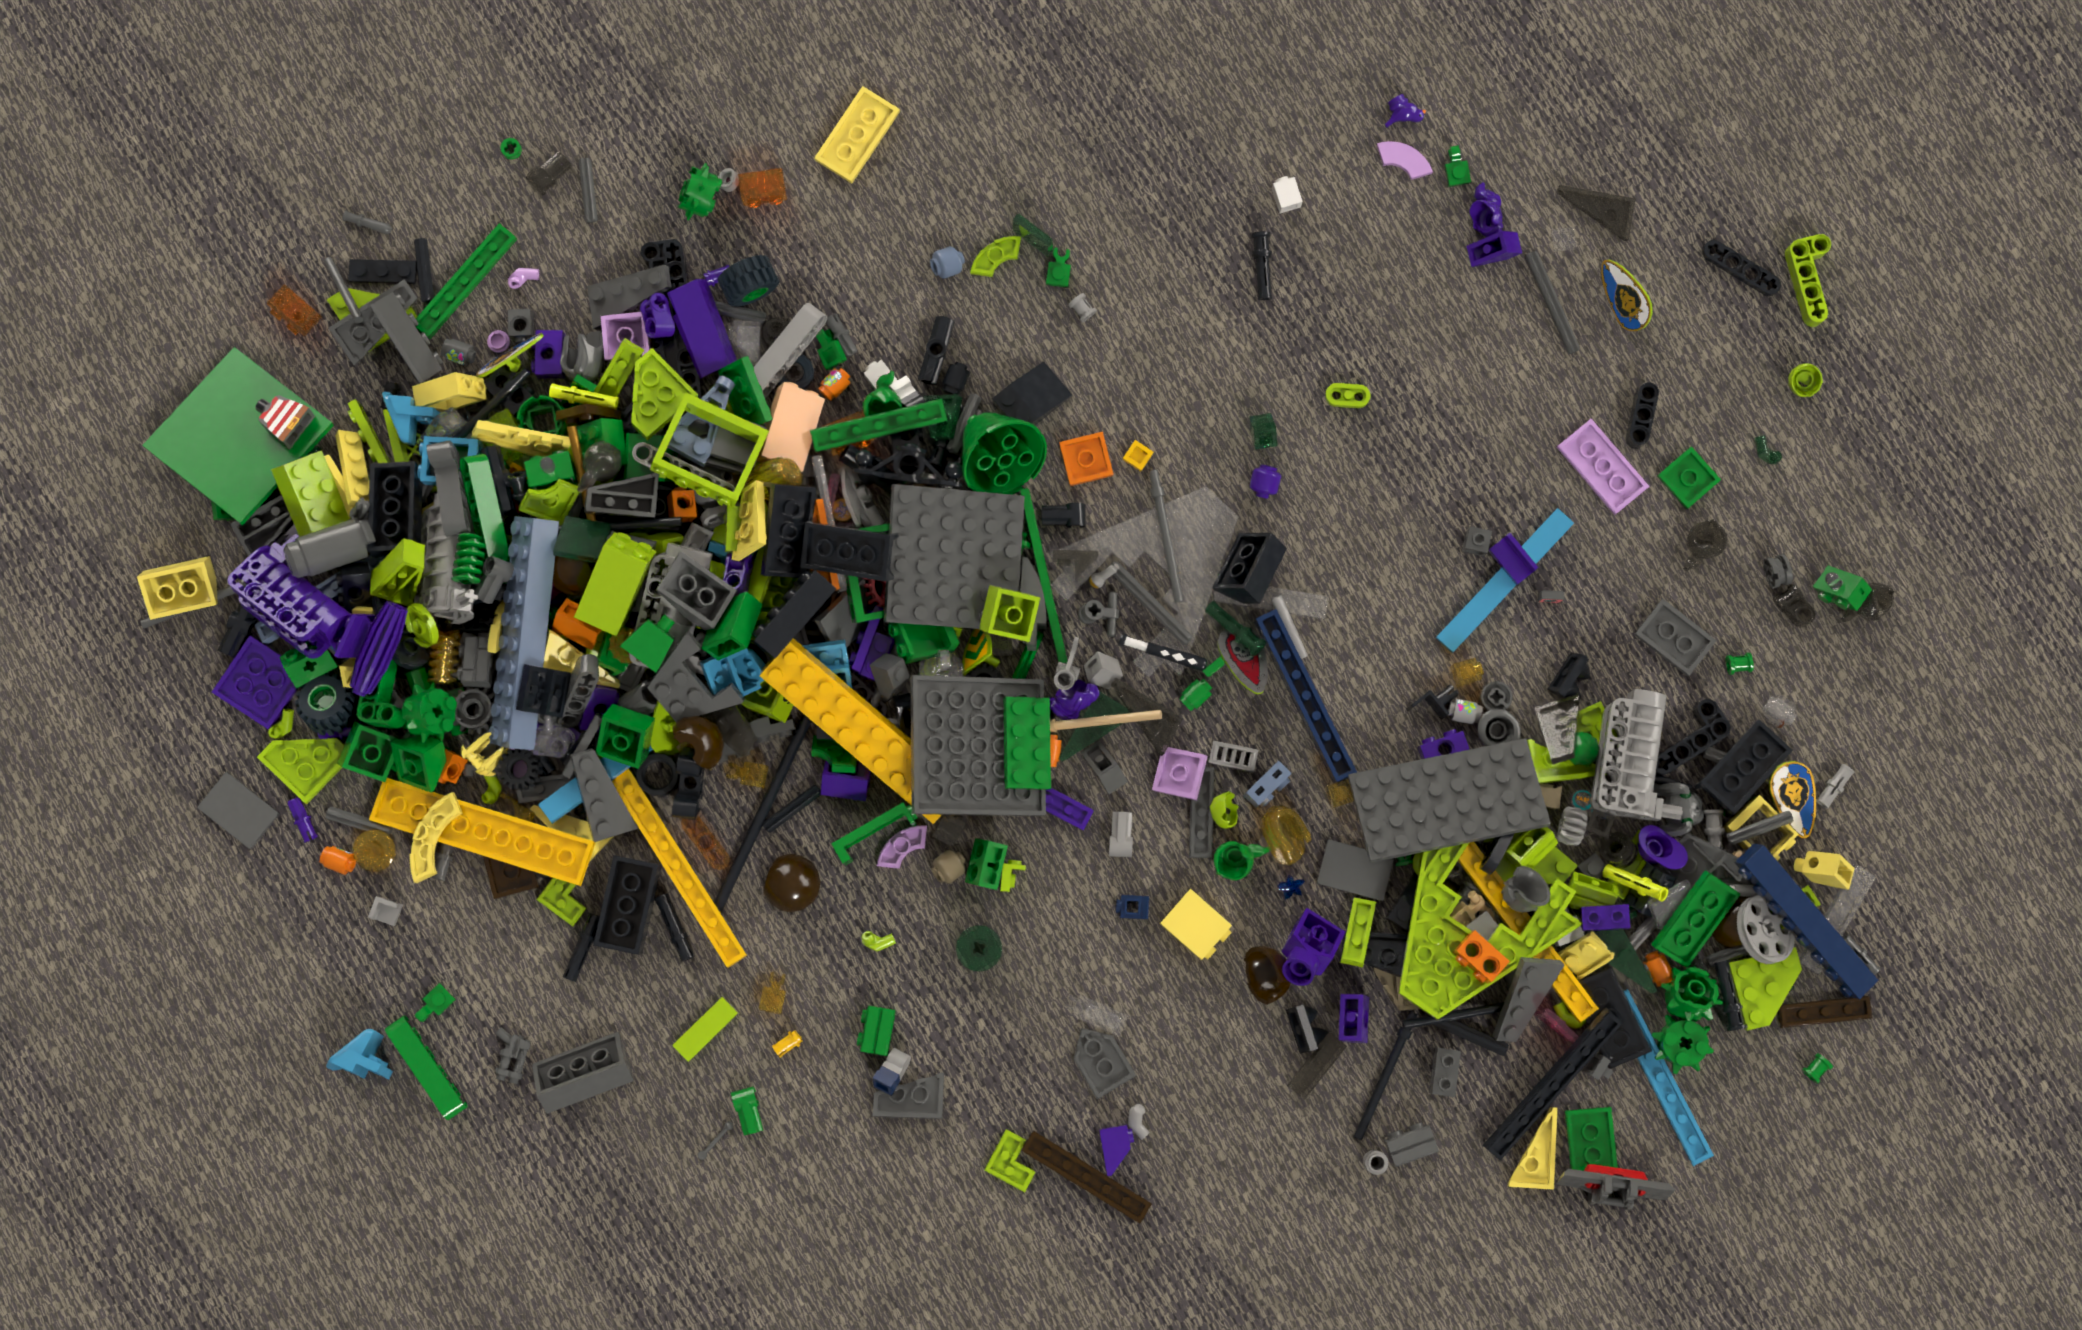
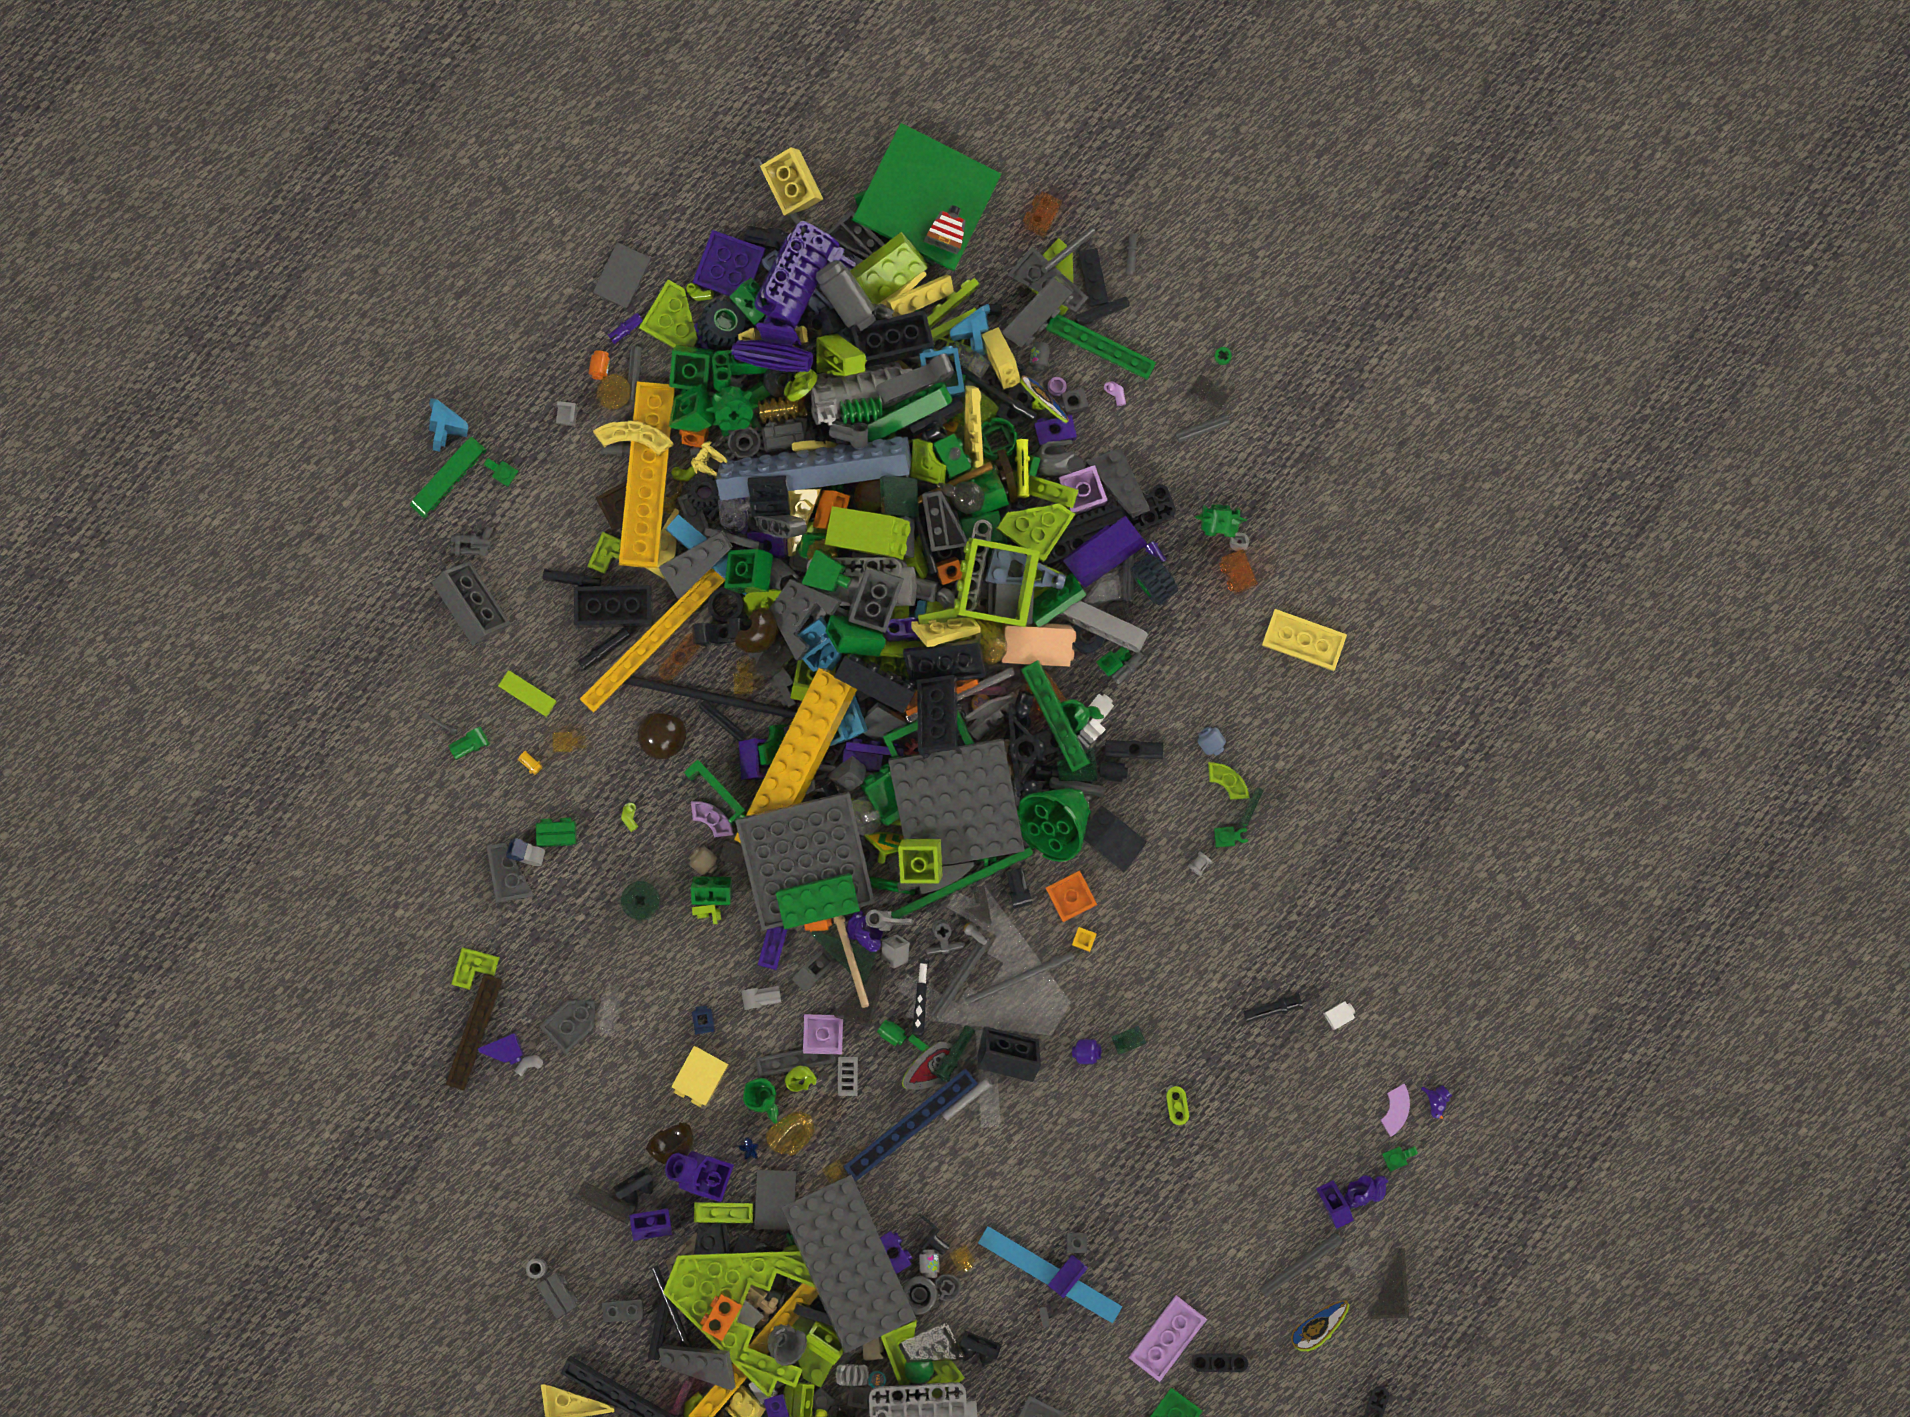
camera: 75 degrees right, 0 degrees up
(657, 319) = (1103, 512): dark purple piece -> none
(834, 383) = (1085, 671): orange brick -> none
(1267, 785) = (828, 1109): sand blue piece -> none
(1403, 1035) = (646, 1270): black bar -> none

